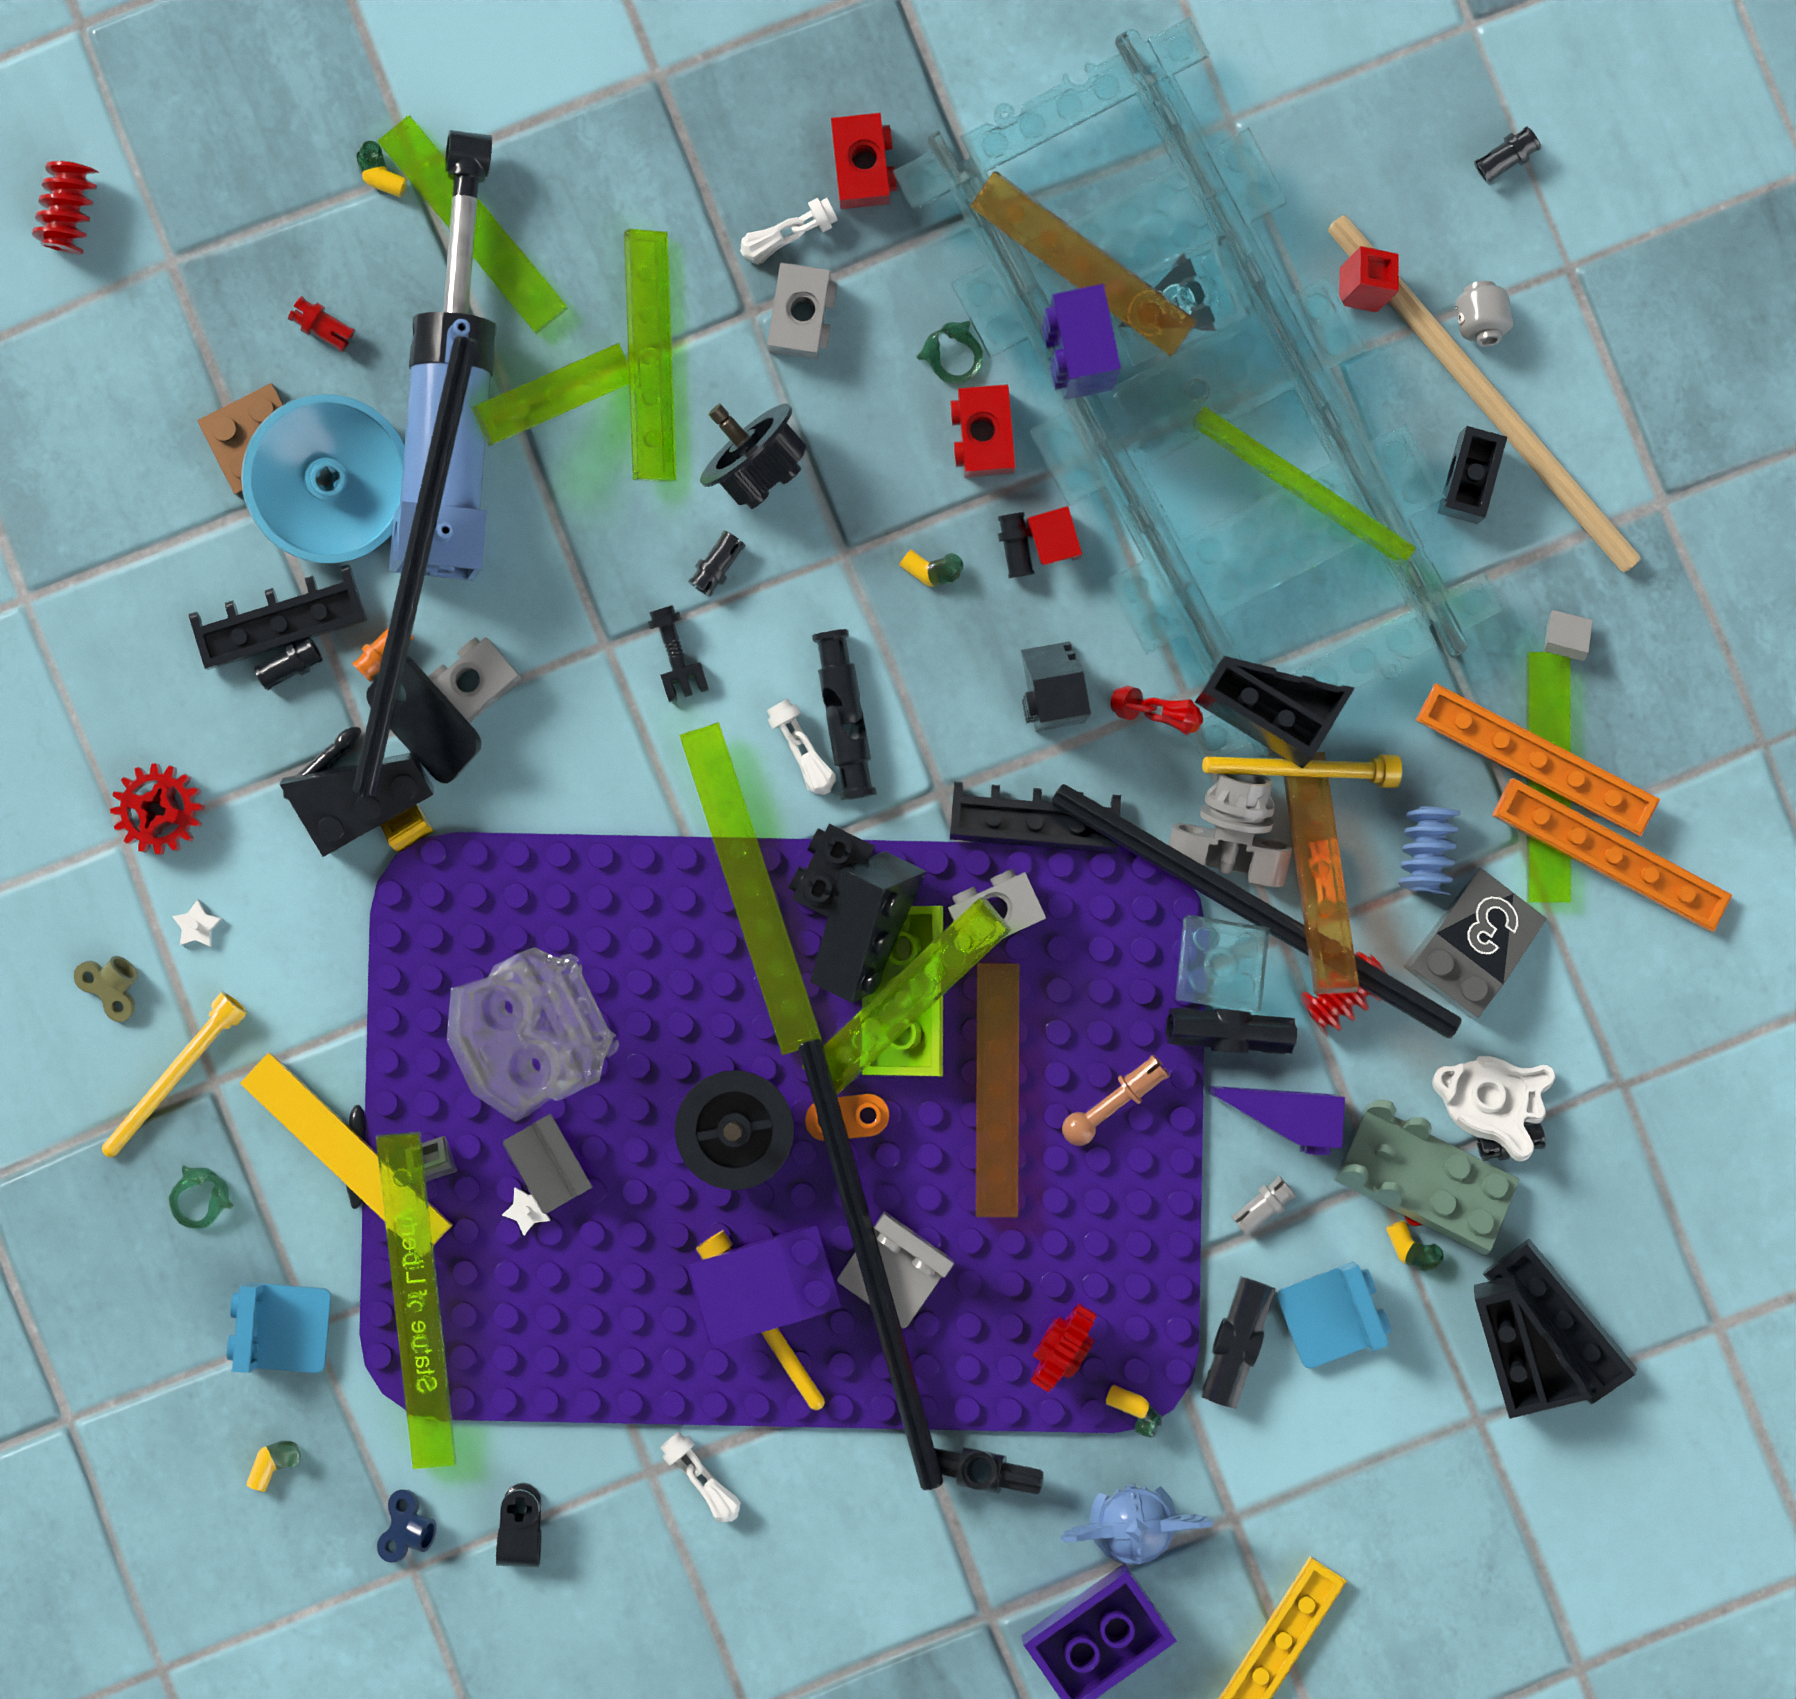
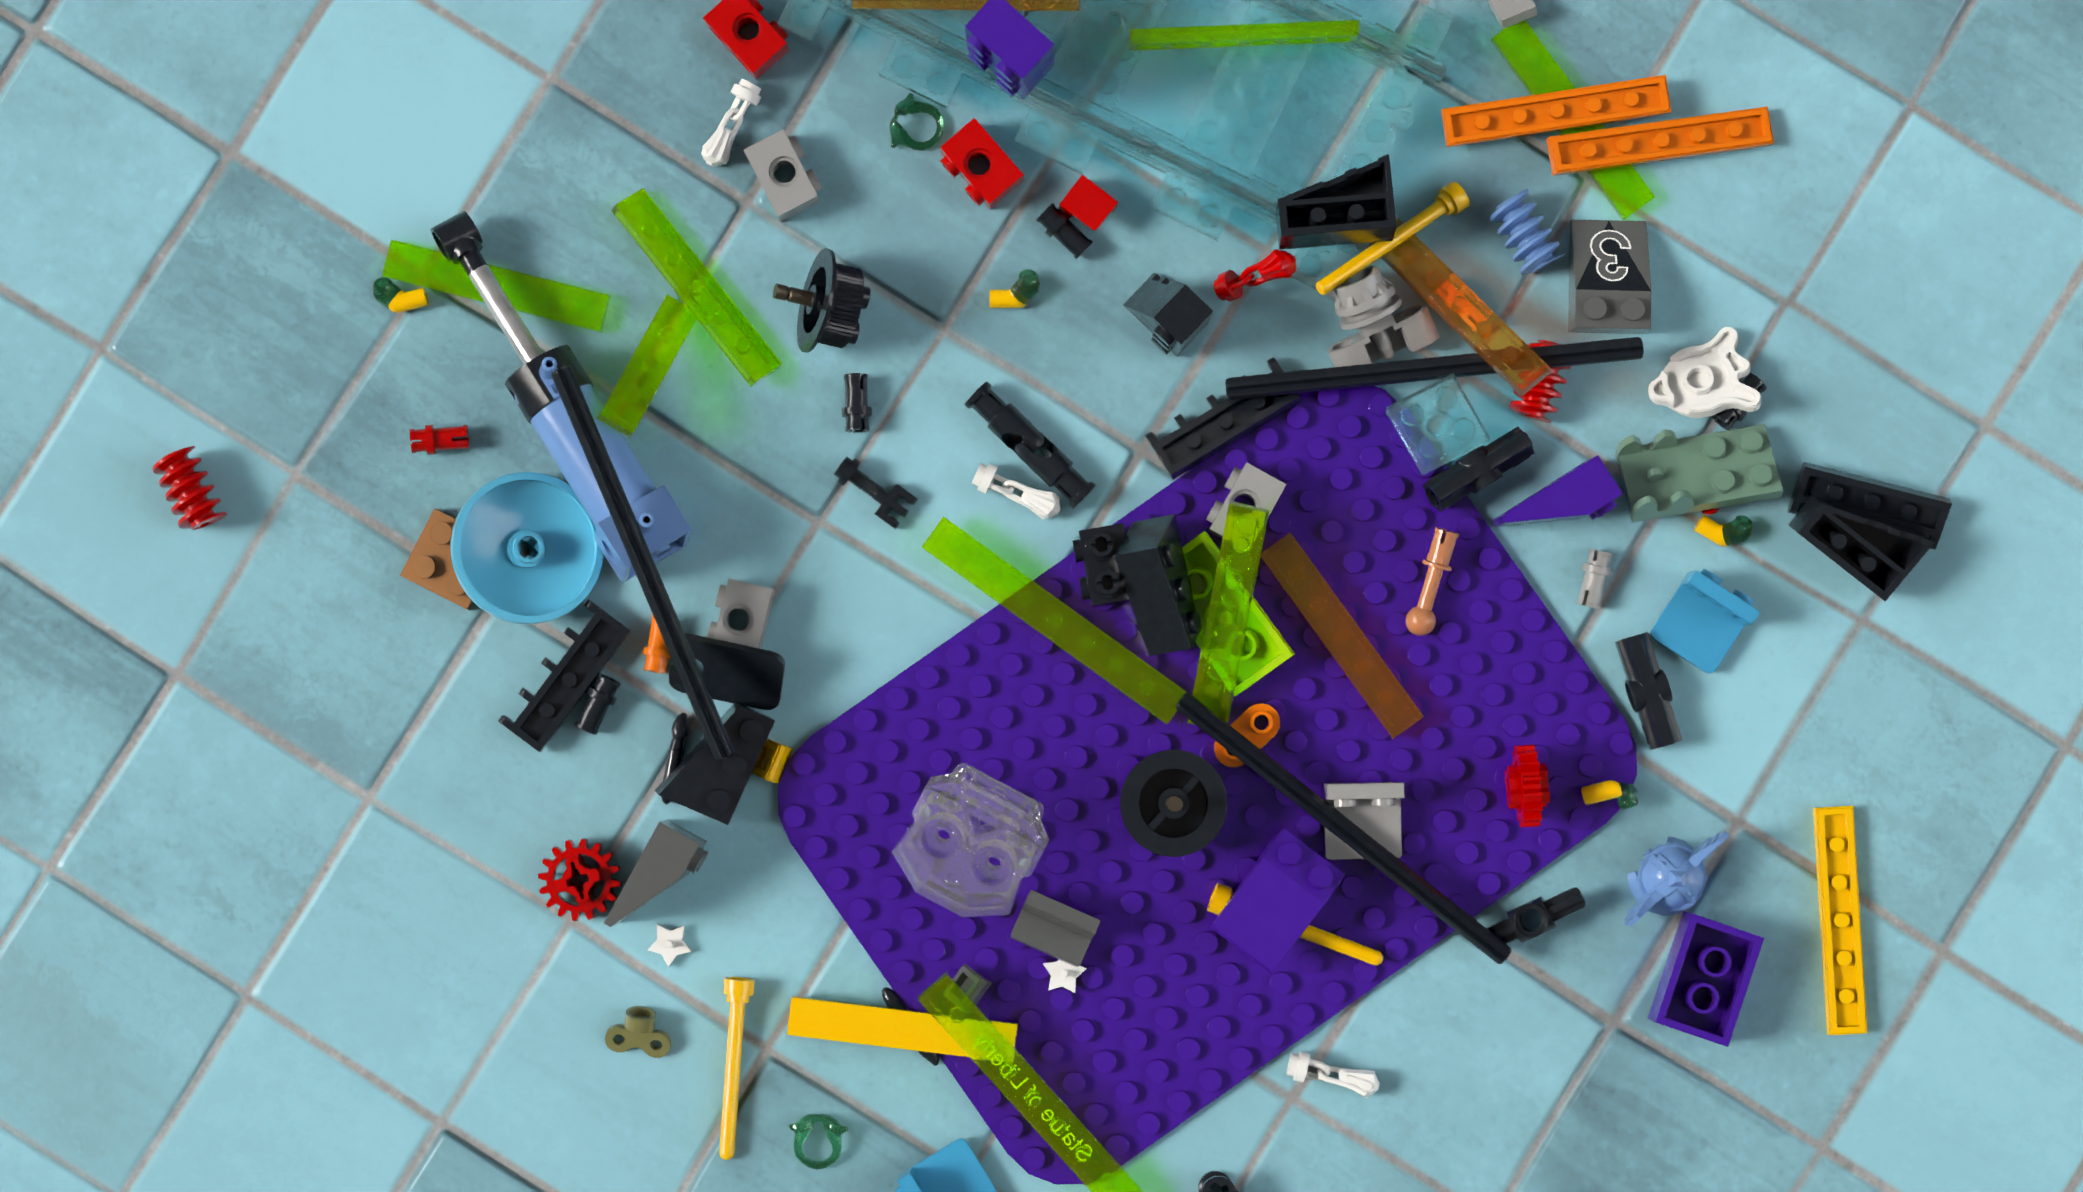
camera: 35 degrees left, 0 degrees up
(245, 848) = (664, 862): none -> dark grey slope

